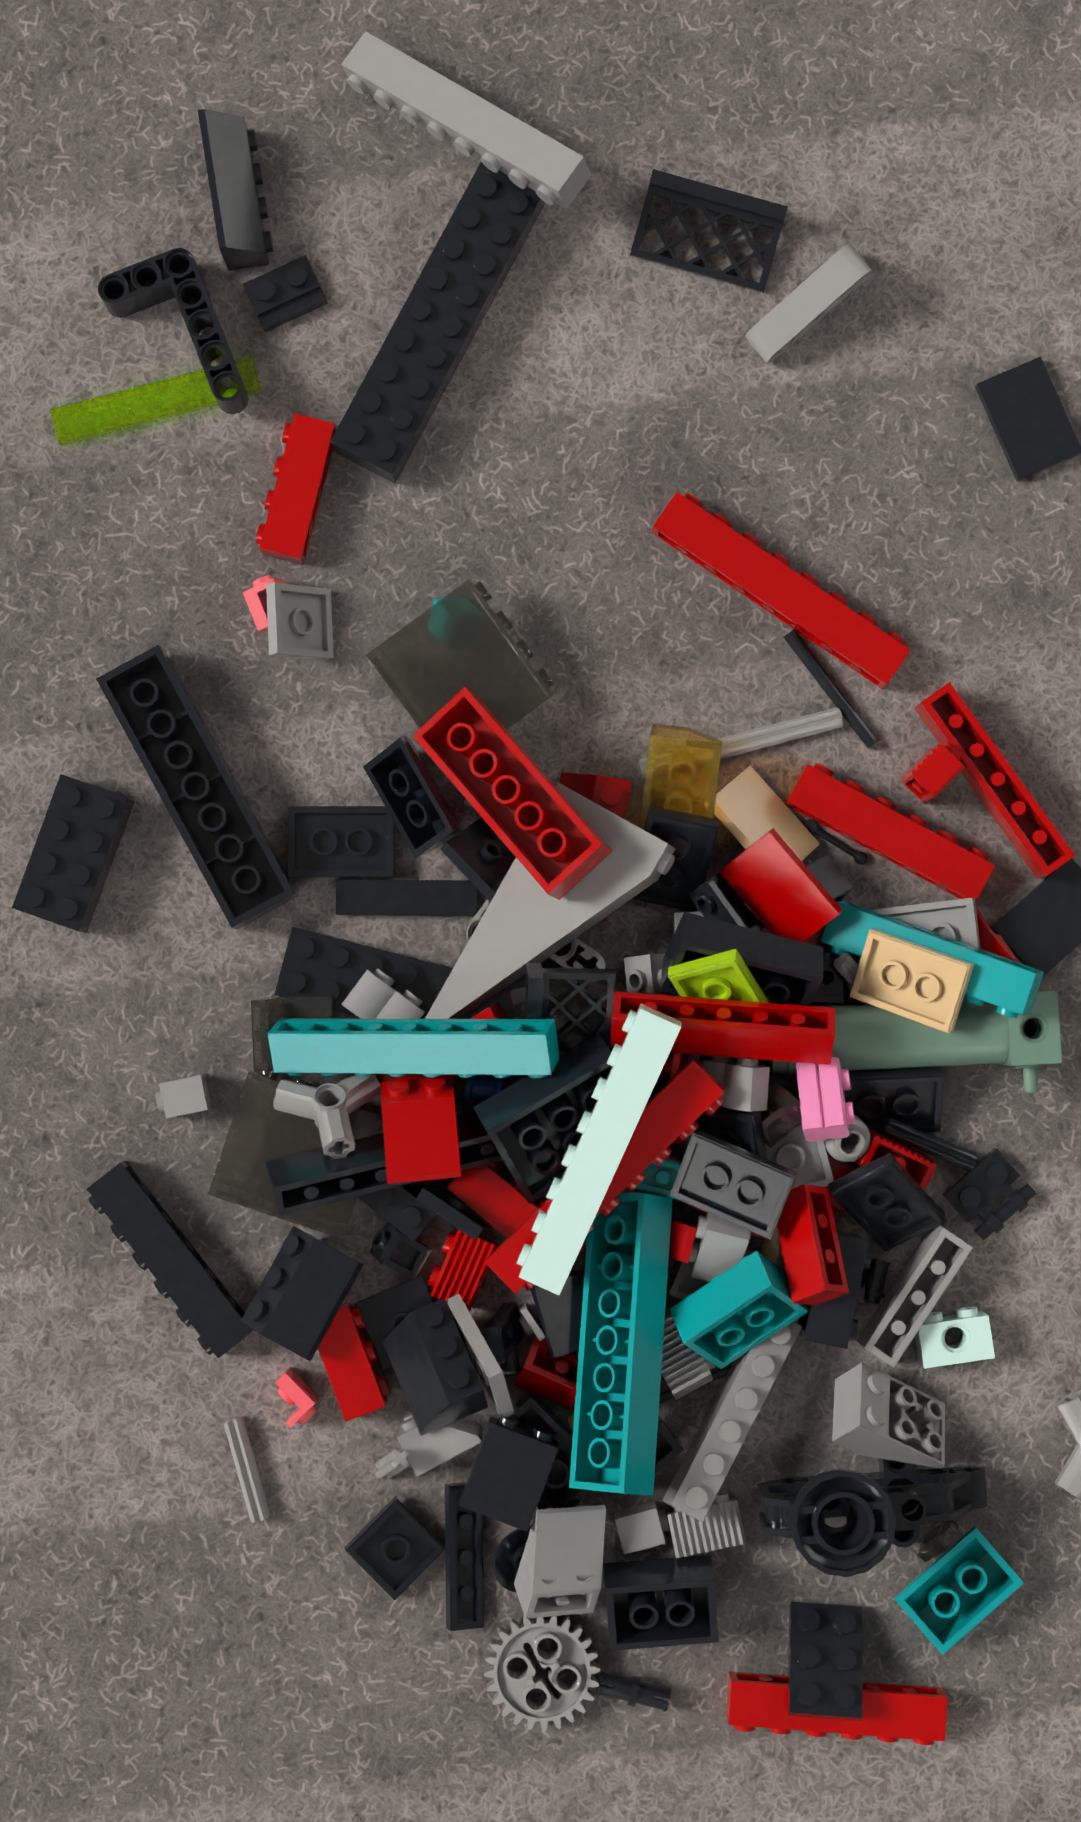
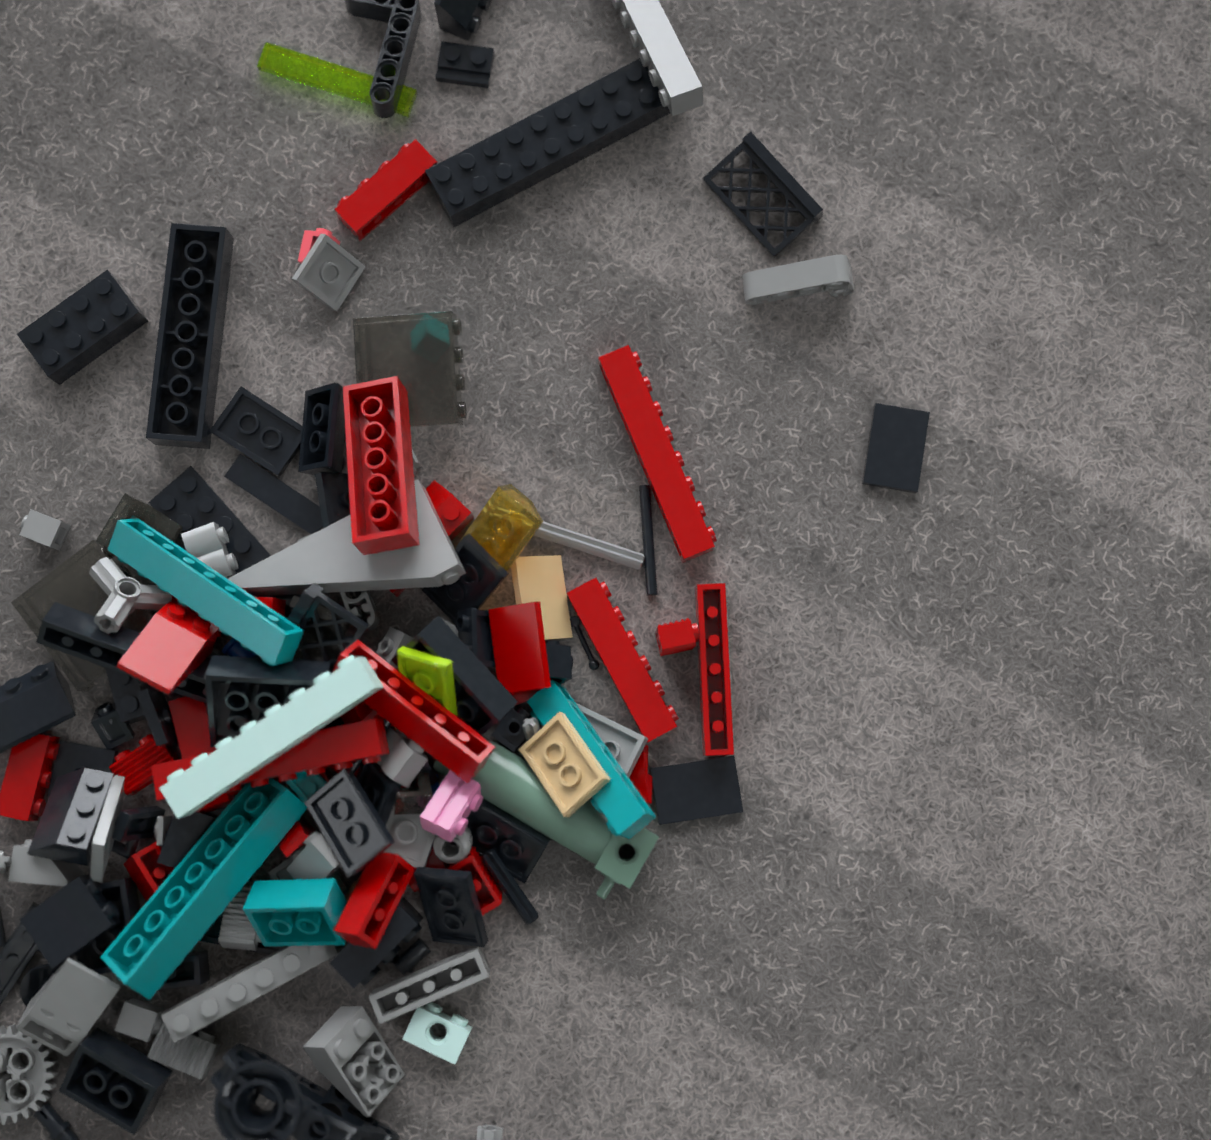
camera: 30 degrees right, 5 degrees down
(981, 1186) = (528, 940): black plate -> none

